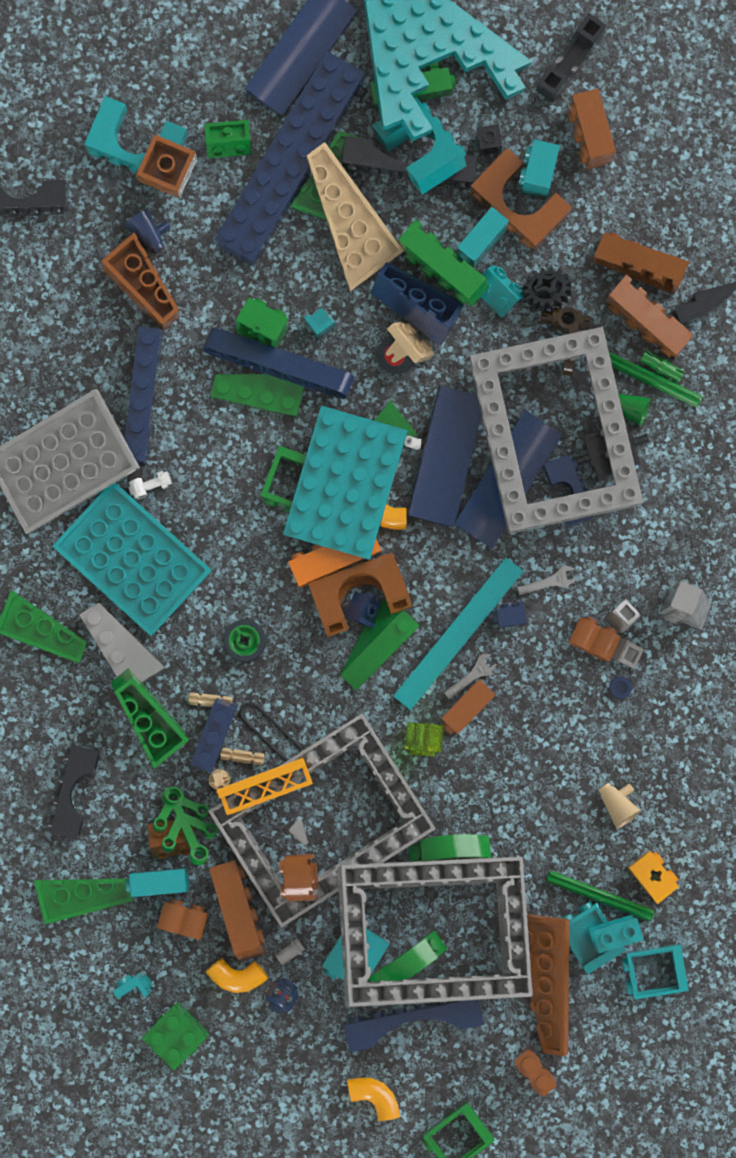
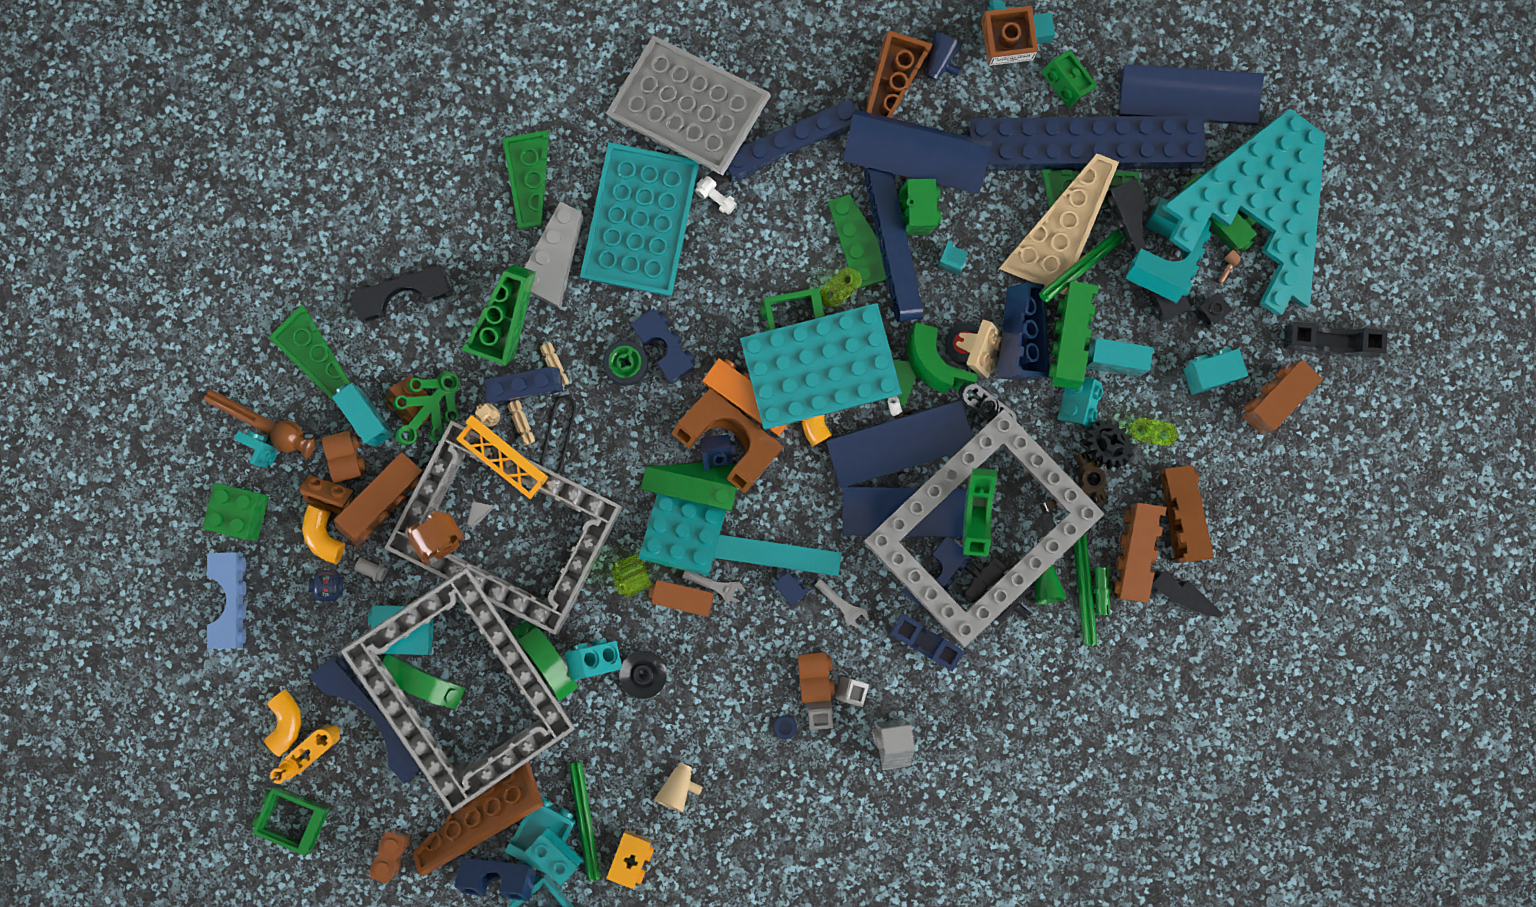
camera: 55 degrees right, 0 degrees up
(136, 958) = (284, 435): none -> dark orange piece
(207, 951) = (326, 494): none -> dark orange bracket
(216, 298) = (917, 151): none -> dark blue arch
(229, 599) = (653, 328): none -> dark blue arch
(270, 1100) = (228, 628): none -> medium blue arch
(289, 428) = (840, 288): none -> clear neon green plate
(390, 223) = (1081, 266): none -> green axle
(397, 394) = (928, 364): none -> green arch
(406, 1080) = (316, 743): none -> light orange beam
(415, 677) = (682, 534): none -> teal plate
(449, 366) = (984, 396): none -> black beam
(456, 98) = (1232, 260): none -> nougat hand
(475, 809) = (593, 660): none -> teal brick
(522, 777) = (640, 687): none -> black dish
(530, 228) = (1156, 397): dark orange arch -> none
(543, 427) = (978, 512): none -> green arch
(557, 247) = (1152, 431): none -> clear neon green plate
(591, 1007) = (477, 873): none -> dark blue arch
(619, 531) = (926, 642): none -> dark blue arch

